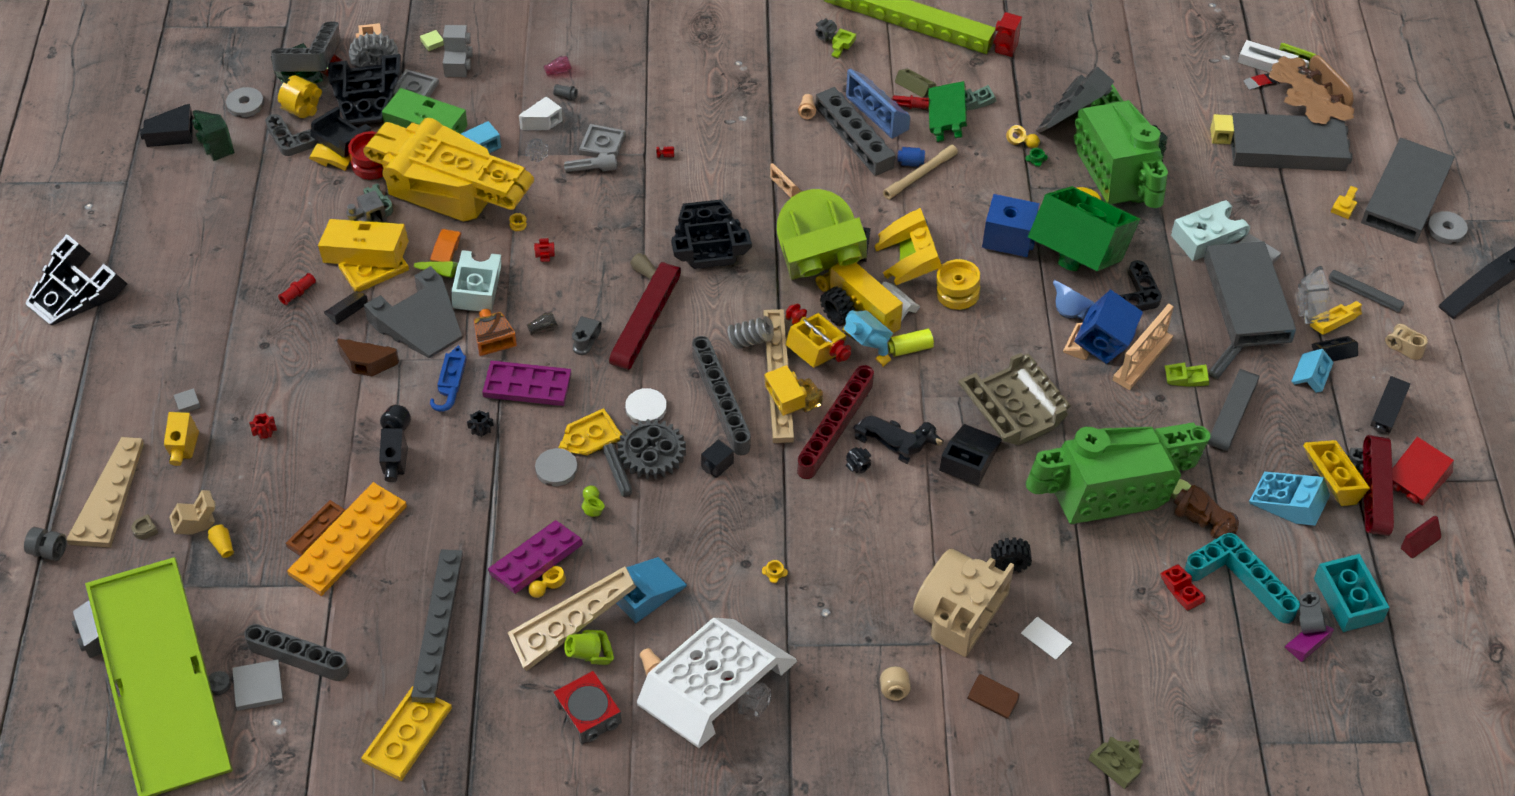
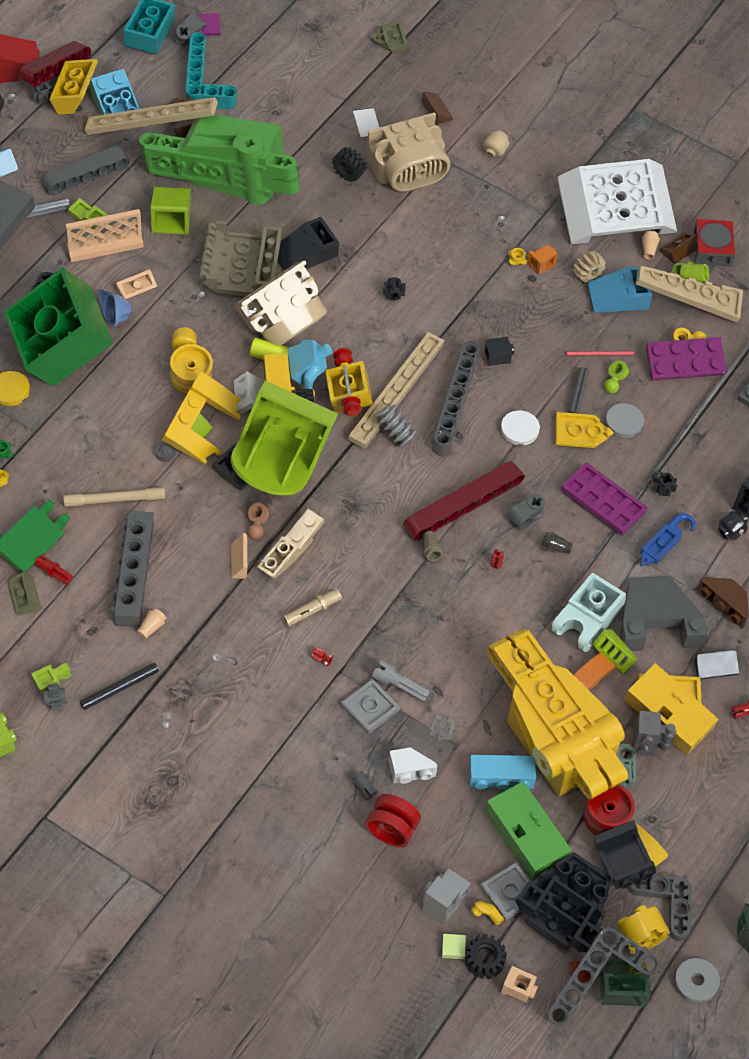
camera: 150 degrees left, 5 degrees up
(370, 48) = (535, 941): light grey gear -> none
(407, 35) = (489, 944): none -> black tyre
(423, 68) = (488, 909): none -> yellow arm
(493, 332) = (605, 557): torso -> none
(525, 68) = (393, 820): none -> red wheel
(544, 249) = (508, 610): red gear -> none
(558, 66) = (349, 822): clear pink cone -> none
(583, 285) = (496, 560): none -> red piece
(623, 686) = (680, 247): none -> reddish brown slope
(624, 522) = (601, 353): none -> coral axle
(657, 449) = (547, 383): dark grey gear -> none
(693, 590) = (589, 266): none -> tan gear
(697, 181) = (320, 603): none -> tan pin
(709, 235) = (355, 535): black wedge -> none
(747, 578) = (542, 259): none -> orange brick
(754, 204) = (292, 545): none -> tan slope
(785, 390) = (411, 355): yellow brick -> none
(791, 63) = (119, 686): none -> black piece
(814, 395) = (388, 359): clear yellow brick -> none
(835, 422) = (387, 325): dark red beam -> none
(876, 104) = (88, 578): medium blue slope -> none
(895, 438) = (351, 288): black animal -> none
(911, 156) = (110, 512): blue brick -> none
(932, 363) = (283, 305): none -> brick
(989, 308) = (183, 336): none -> yellow head
(1009, 225) = (102, 383): blue brick -> none
(1108, 327) = (117, 259): blue brick -> none
(1120, 405) = (170, 210): none -> lime slope
(1181, 587) = (248, 95): red slope -> none
(1222, 460) = (151, 116): none -> tan plate
(1422, 537) = (59, 33): dark red slope -> none

